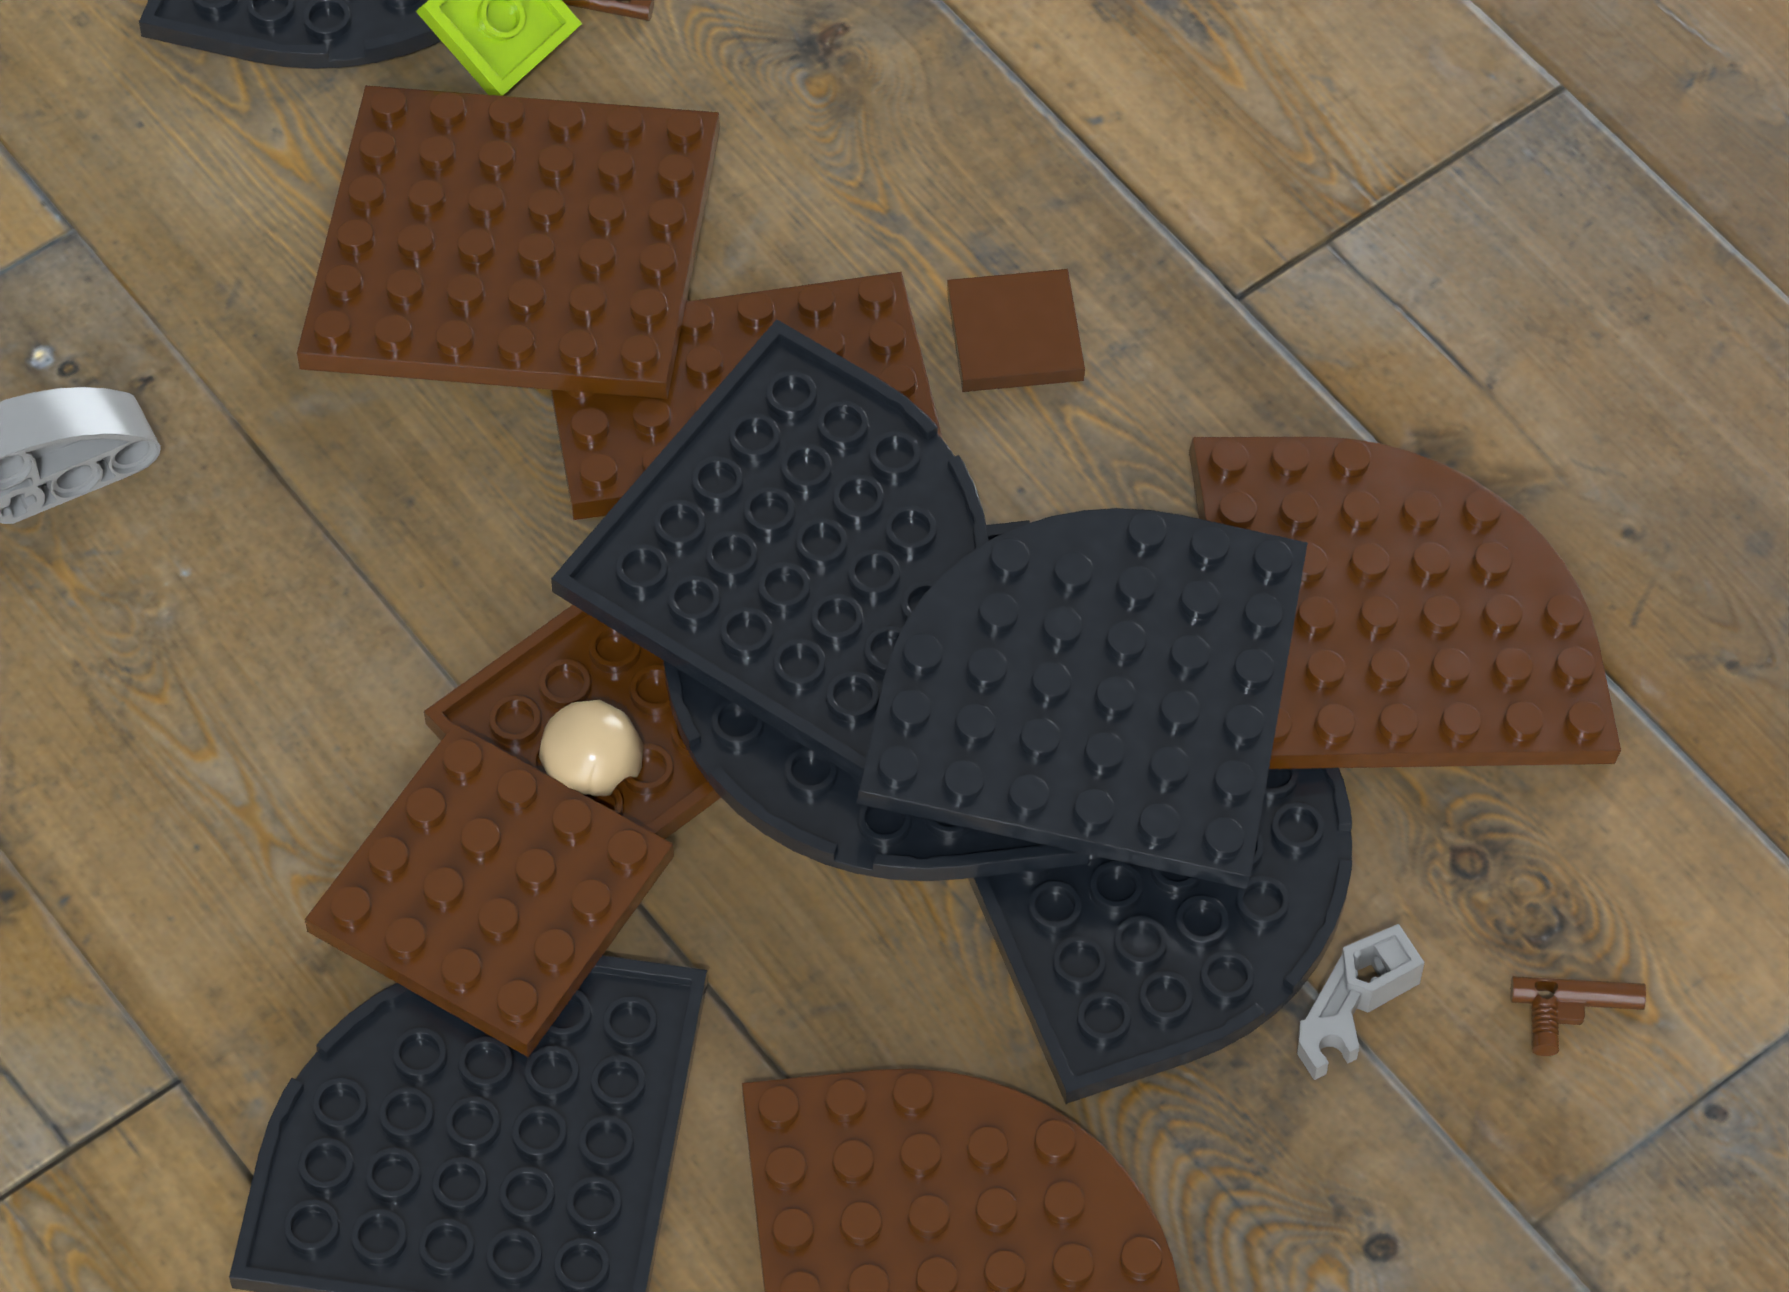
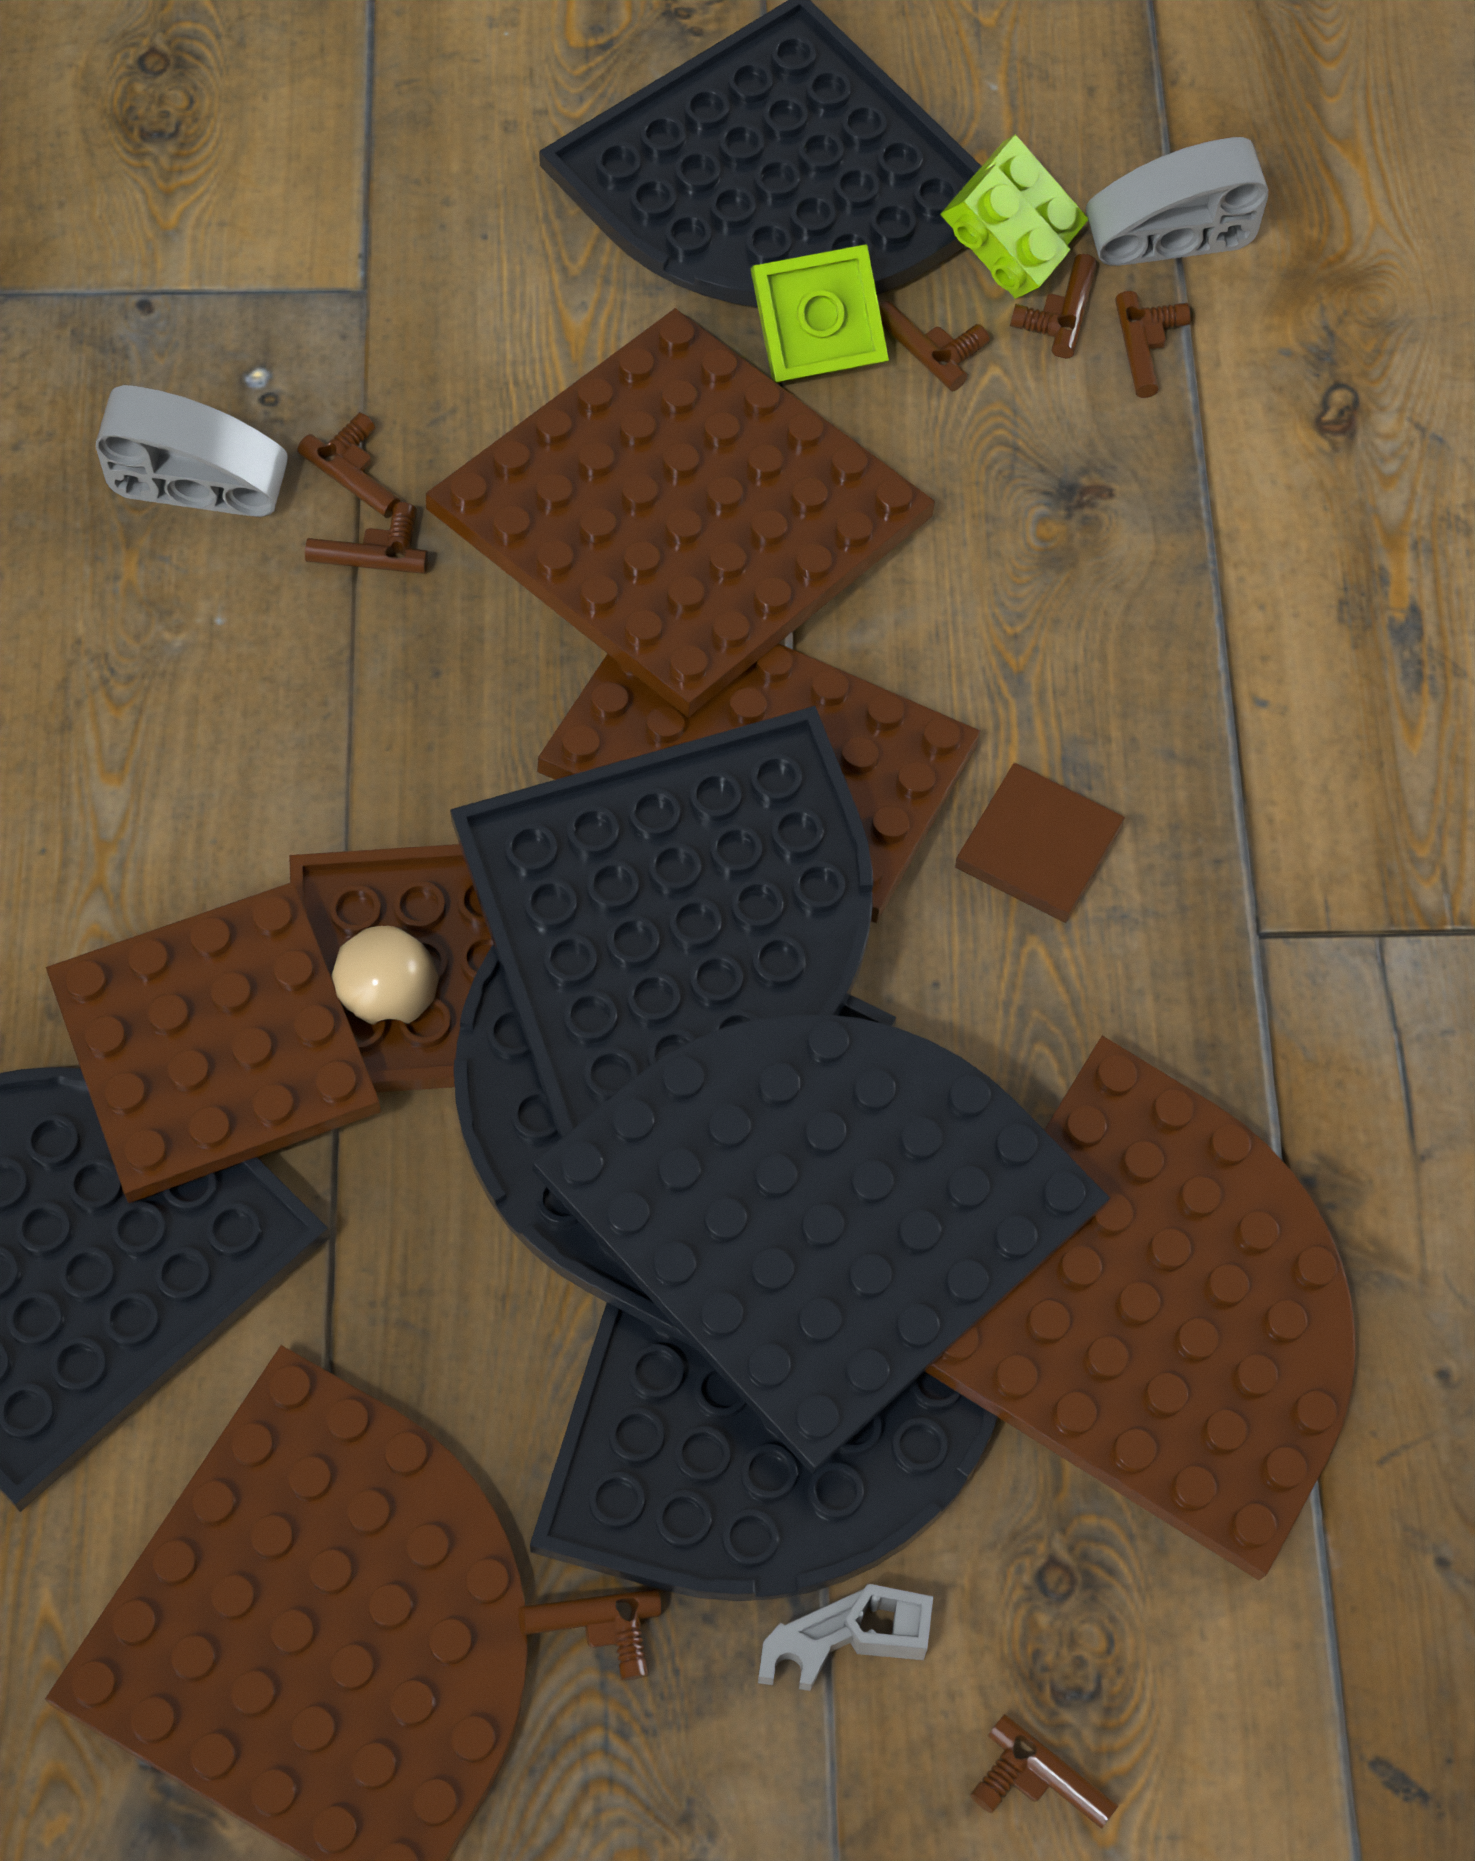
camera: 35 degrees right, 5 degrees up
(191, 377) = (350, 463): none -> reddish brown hose
(273, 430) = (377, 546): none -> reddish brown hose
(1167, 1114) = (601, 1623): none -> reddish brown hose

